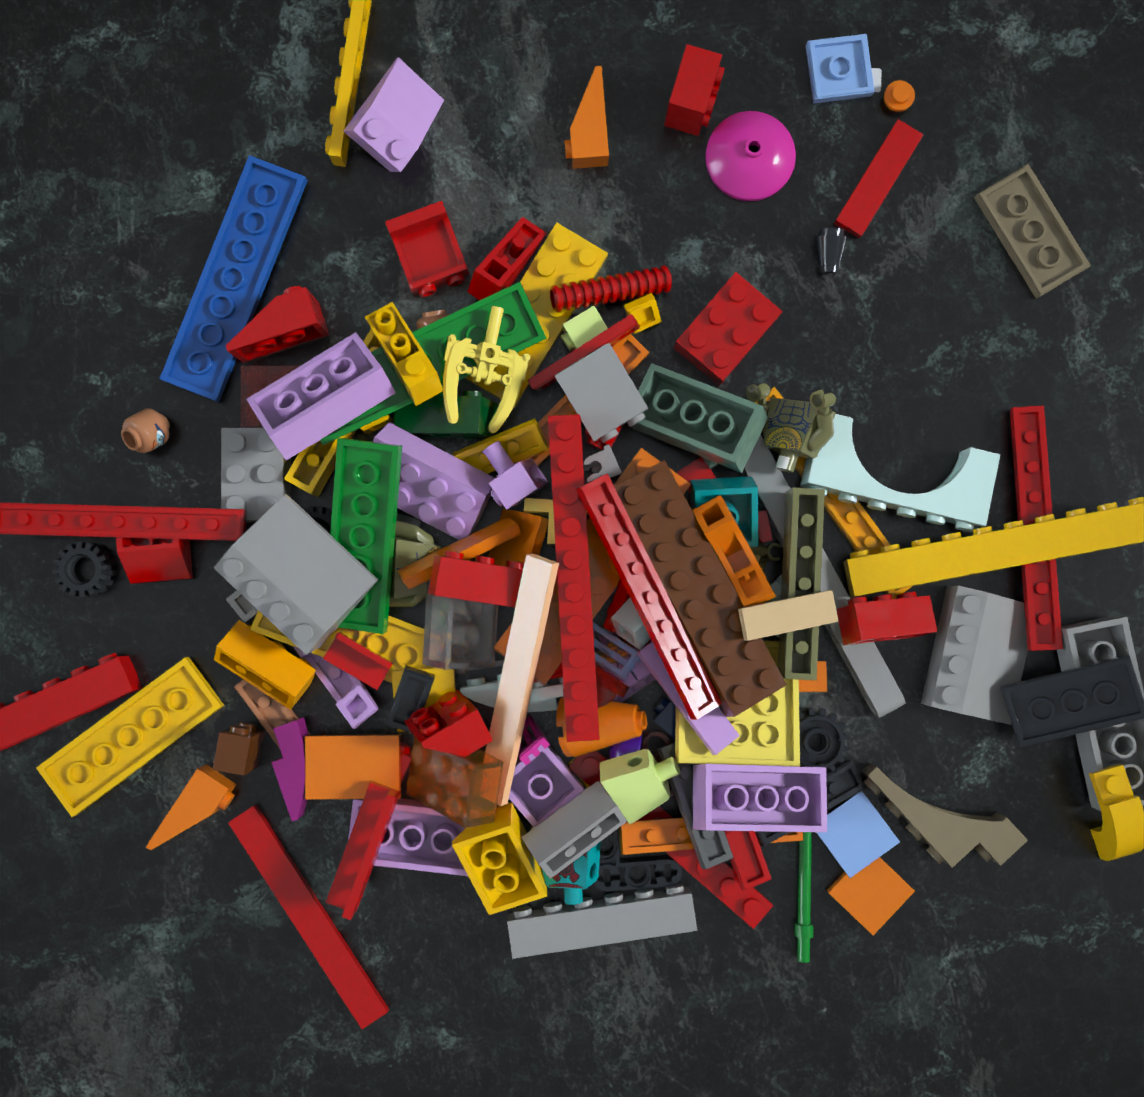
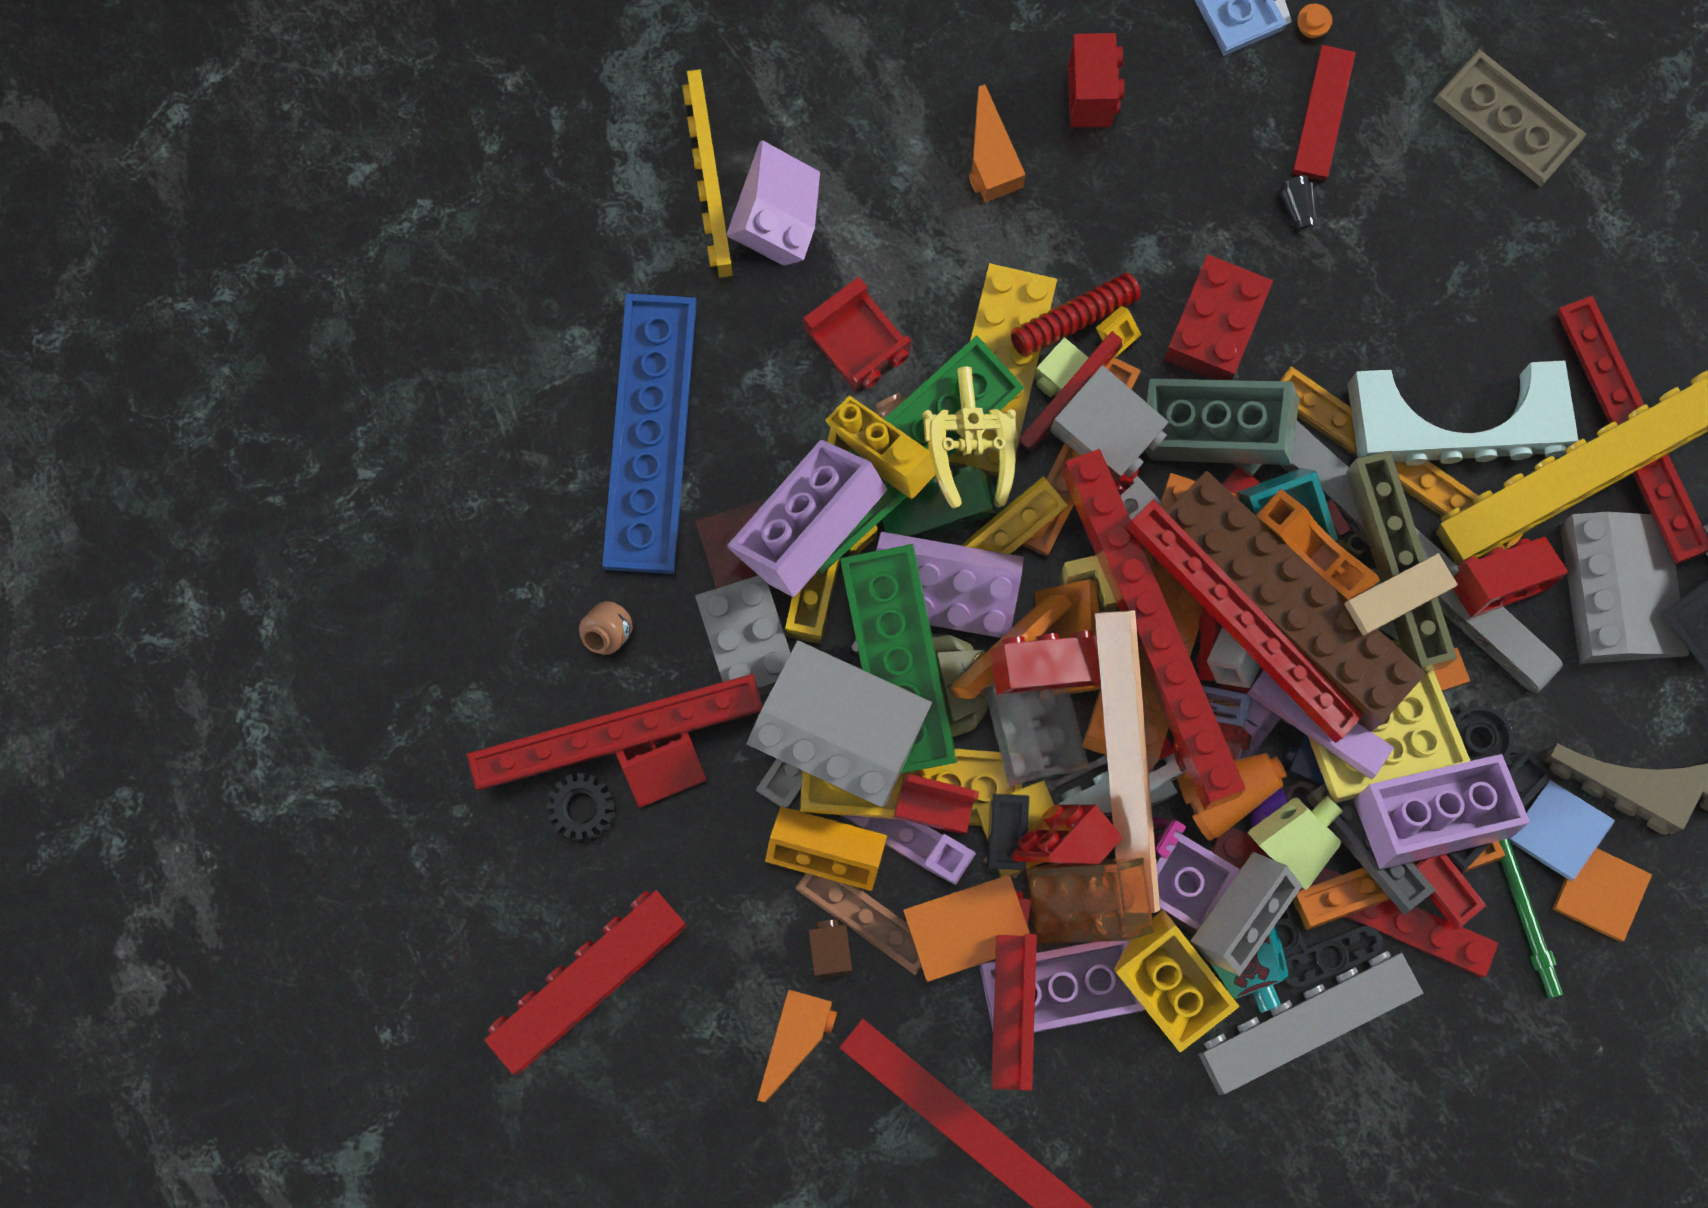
camera: 15 degrees left, 10 degrees down
(130, 736) = (693, 984): yellow plate -> none
(282, 324) = (731, 459): red slope -> none
(291, 767) = (899, 951): magenta slope -> none
(506, 260) = (948, 320): red slope -> none
(513, 480) = (1044, 549): lavender brick -> none
(745, 173) = (1170, 148): dark pink dish -> none
(795, 426) = (1333, 396): olive torso -> none

